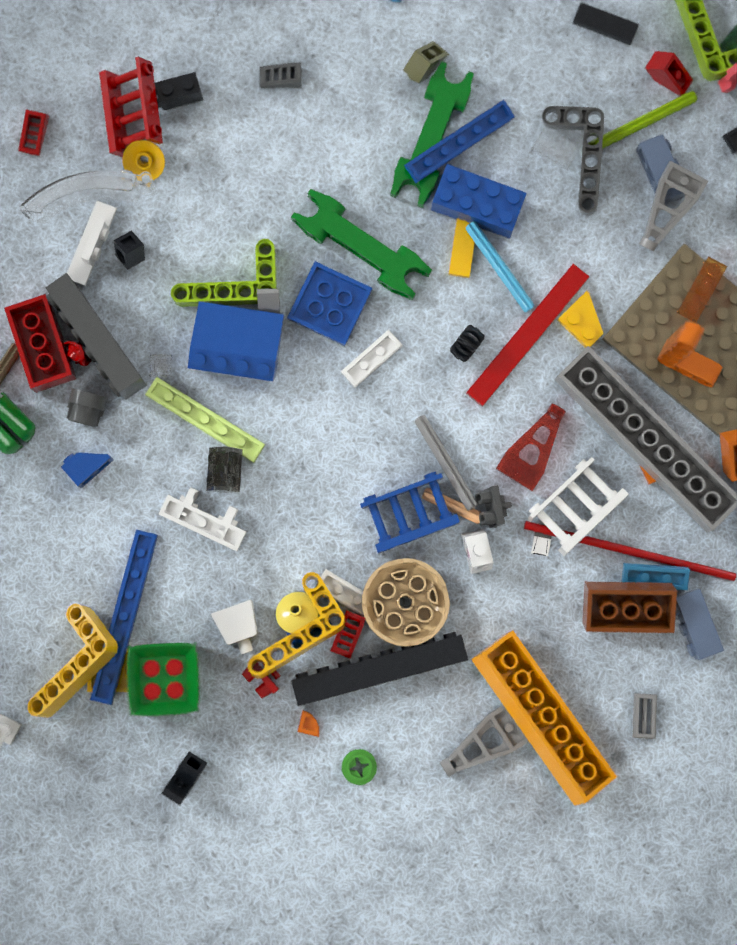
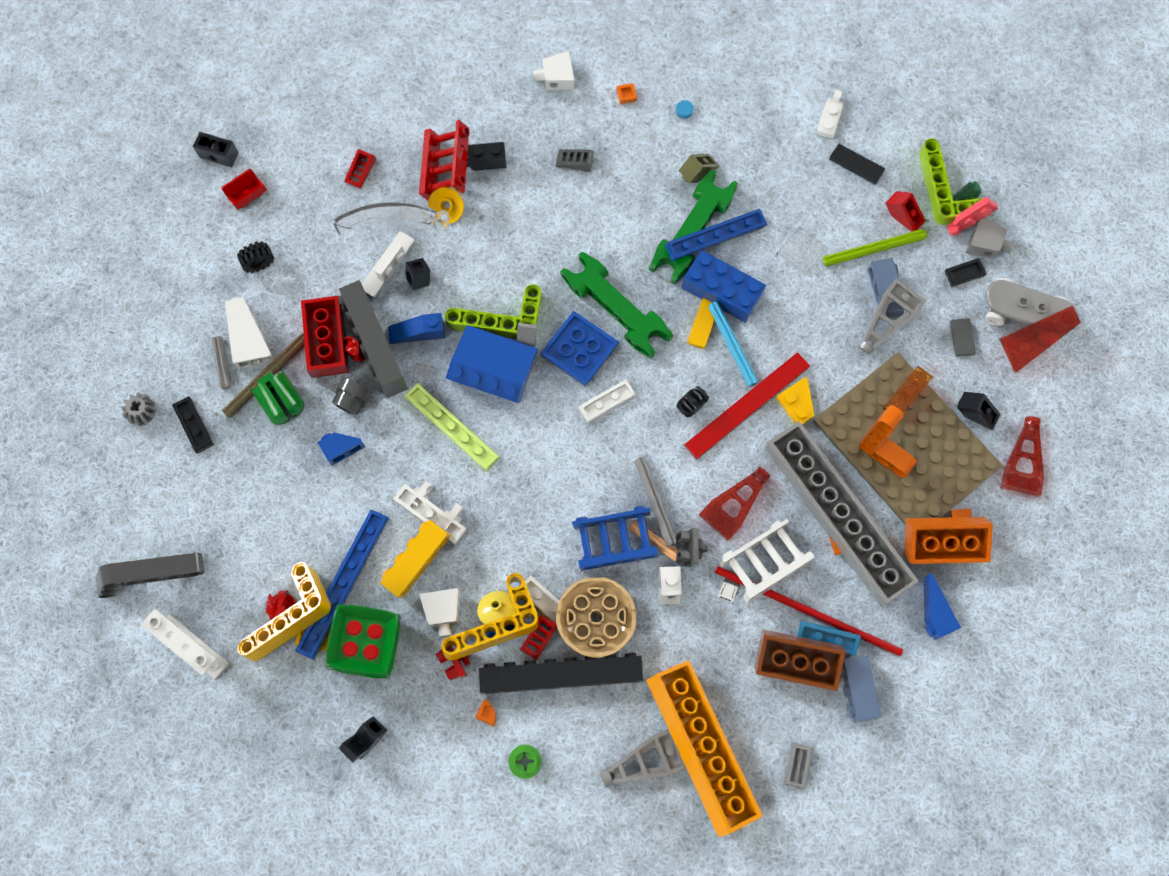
camera: 15 degrees right, 10 degrees down
(60, 653) = (279, 603): none -> red hat
(142, 314) = (417, 329): none -> blue slope
(197, 576) = (415, 559): none -> yellow brick
(224, 469) = (458, 471): clear smoke brick -> none
(587, 151) = (825, 260): dark grey beam -> none

